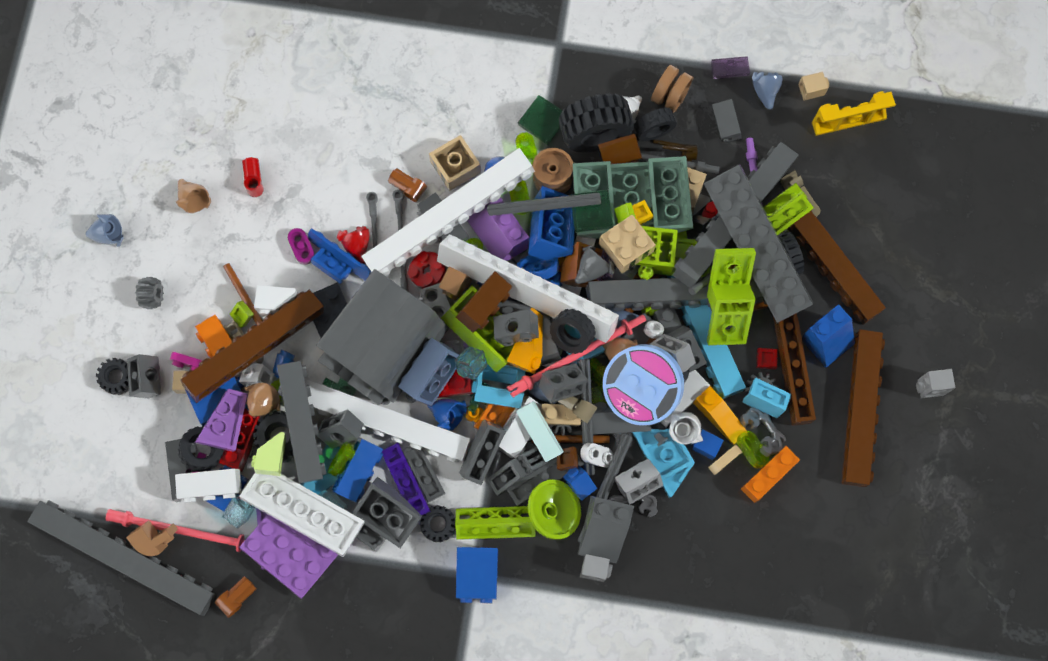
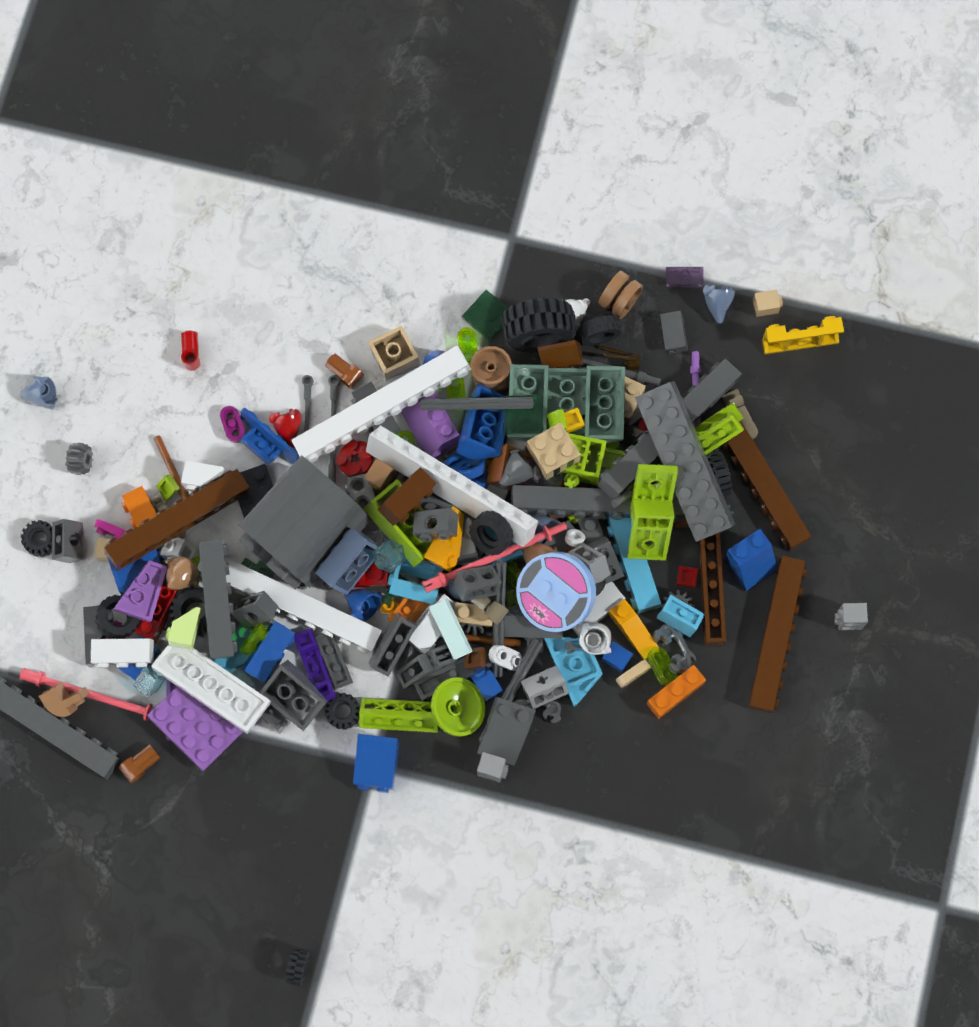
camera: 10 degrees right, 0 degrees up
(192, 196) = (128, 365): medium nougat hat -> none
(282, 358) = (204, 535): blue cone -> none

